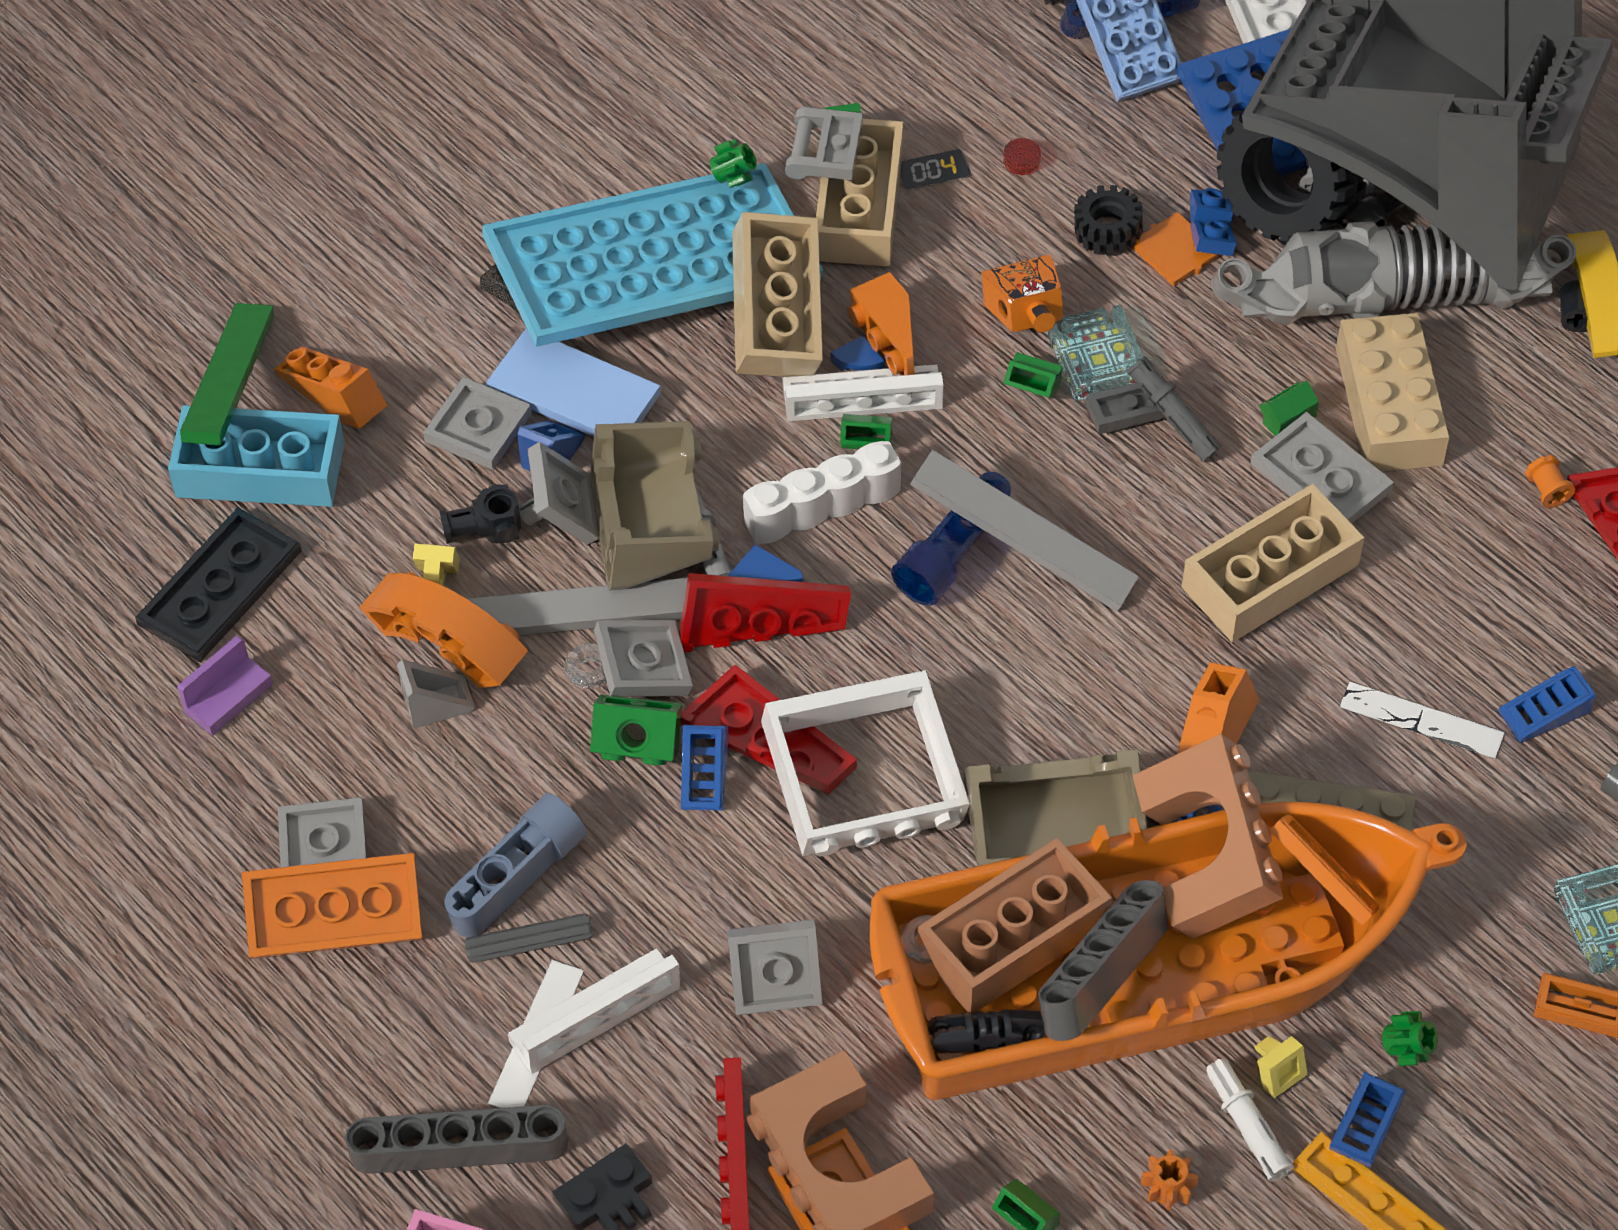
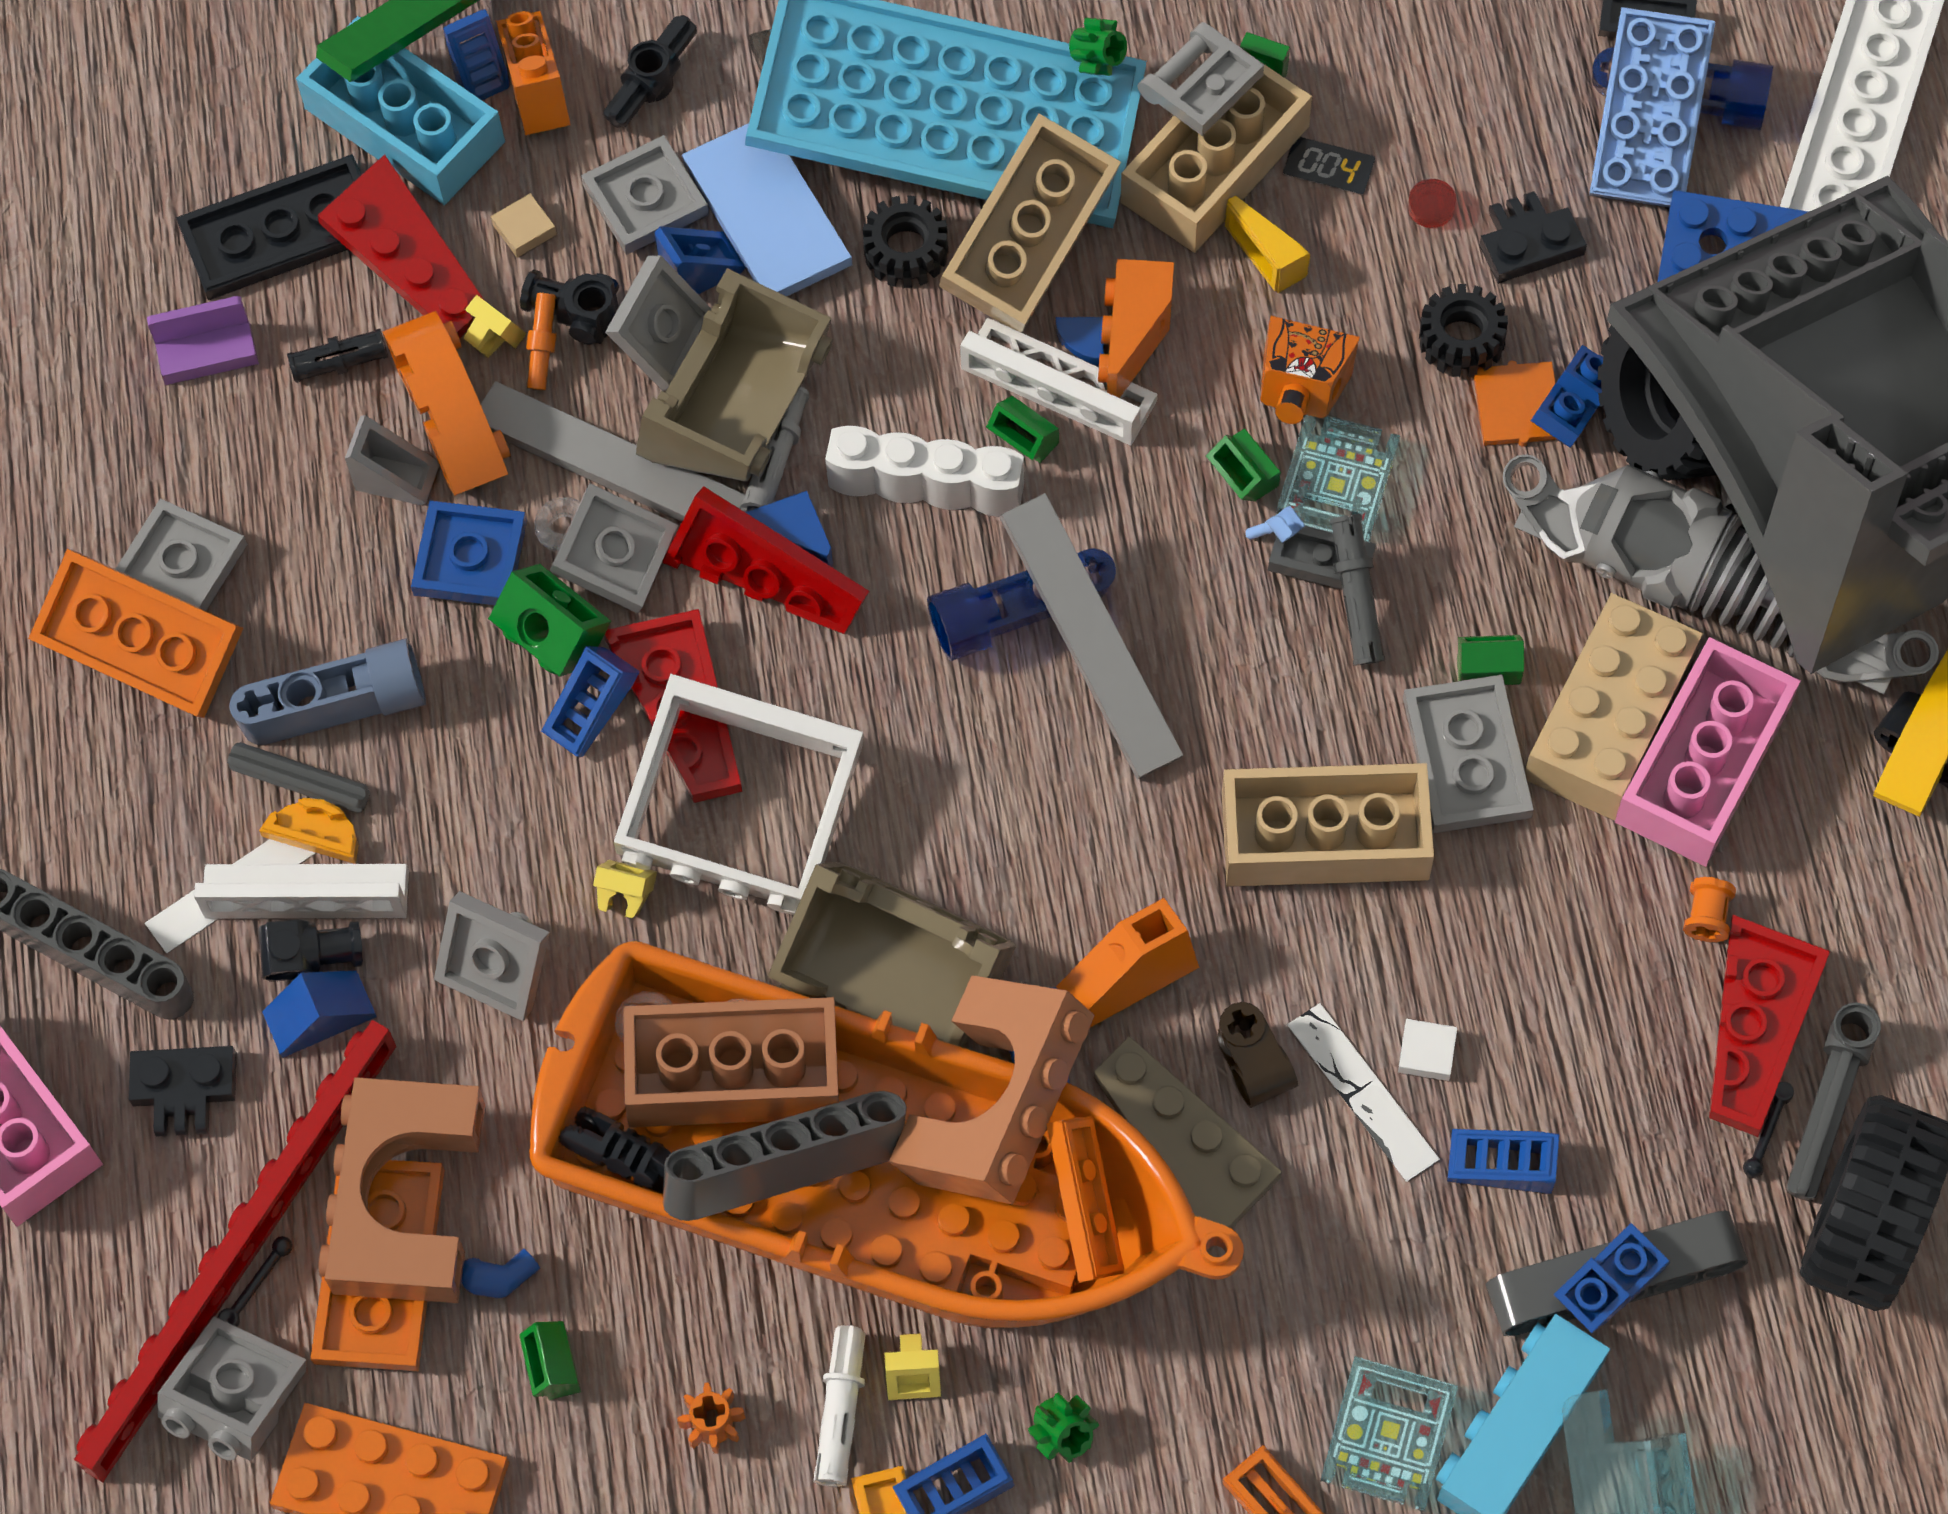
camera: 35 degrees right, 10 degrees up
(286, 386) = (478, 61): none -> blue slope
(314, 661) = (369, 345): none -> black pin
(324, 546) = (399, 243): none -> red wing
(402, 489) = (523, 225): none -> tan tile
(418, 342) = (645, 56): none -> black axle
(481, 553) = (541, 341): none -> orange bar
(537, 720) = (467, 552): none -> blue plate
(567, 964) = (313, 827): none -> light orange tile
(629, 1045) = (299, 948): none -> black connector
(666, 1085) = (316, 1009): none -> blue slope
(688, 341) = (905, 264): none -> black tyre
(833, 866) = (618, 877): none -> light yellow tile
(936, 234) = (1270, 249): none -> yellow slope
(947, 1181) = (495, 1279): none -> blue arm
(1094, 392) = (1283, 524): none -> light blue hand
(1101, 146) = (1529, 238): none -> black hinge
(1340, 735) = (1256, 1062): none -> dark brown piece
(1443, 668) = (1427, 1049): none -> white tile
(1477, 385) = (1707, 751): none -> bright pink brick

